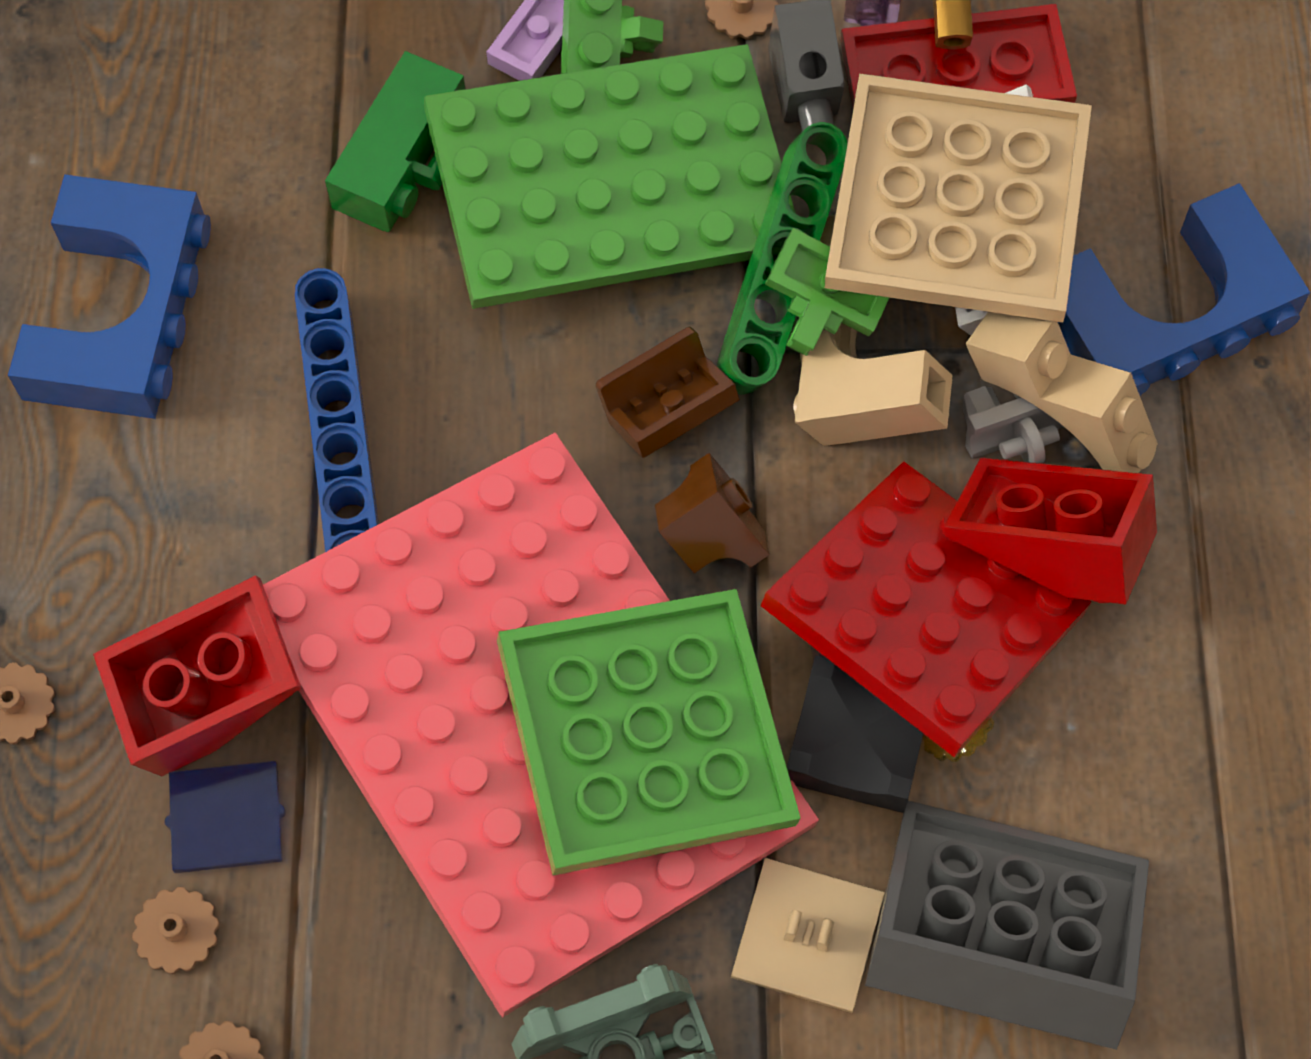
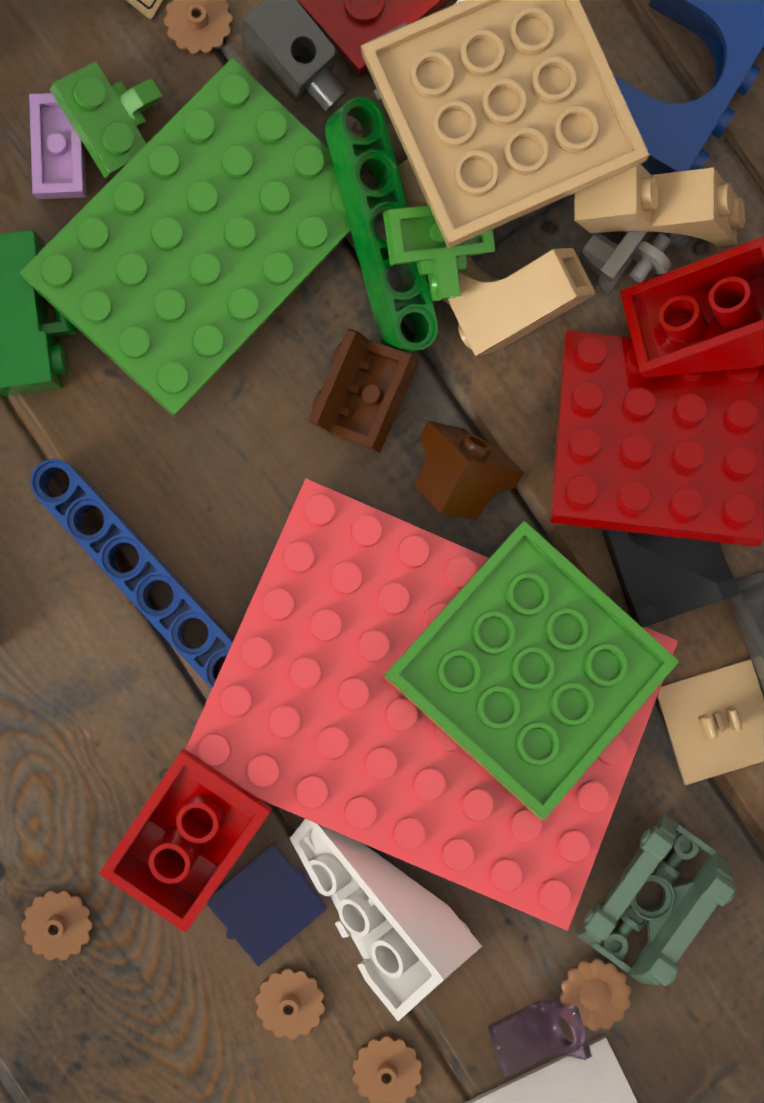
camera: 30 degrees left, 20 degrees up
(340, 914) = (400, 928): none -> white wedge

